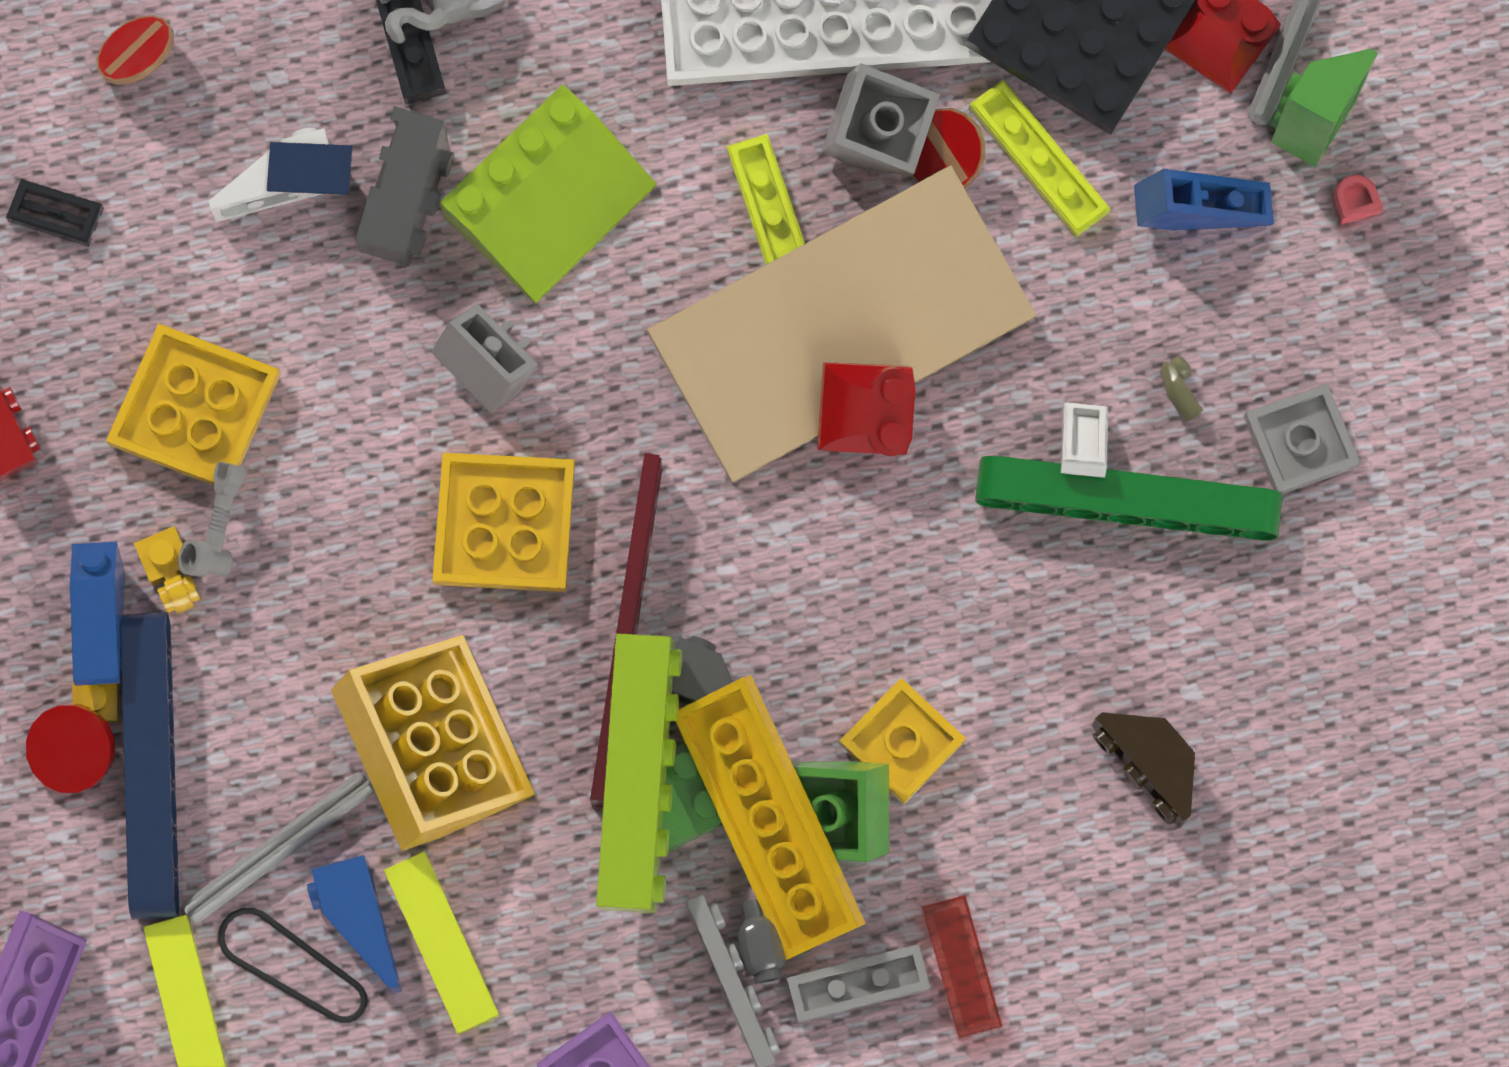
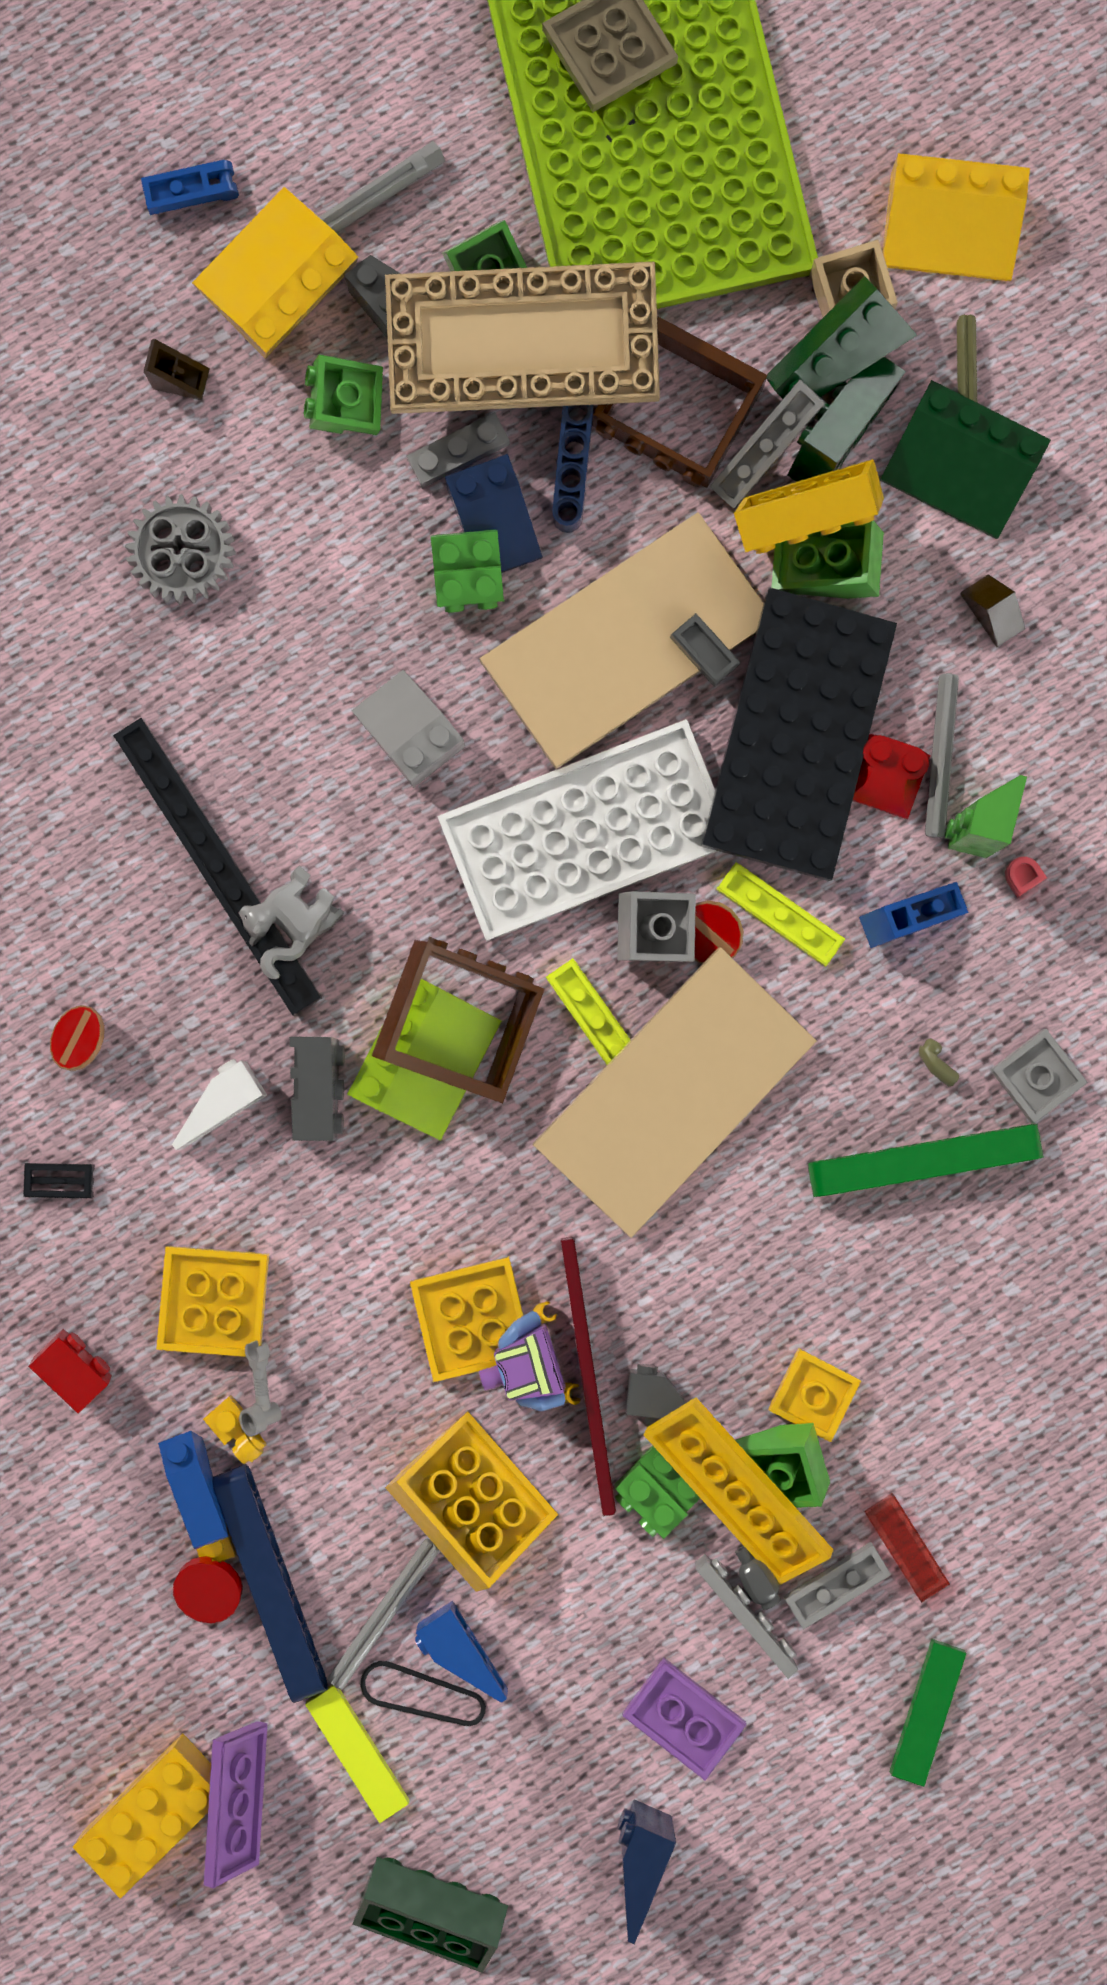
camera: 15 degrees left, 10 degrees up
(309, 168) = (239, 1096): dark blue sticker -> none
(441, 943) = (526, 1647): neon yellow tile -> none
(485, 357) = (419, 1200): light grey brick -> none
(558, 590) = (529, 1365): none -> torso
(561, 209) = (511, 1041): none -> reddish brown window
(637, 774) = (633, 1494): lime brick -> none
(866, 408) = (714, 1153): red slope -> none
(1084, 440) = (881, 1127): white tile -> none
(1152, 758) = (1001, 1353): dark brown slope -> none

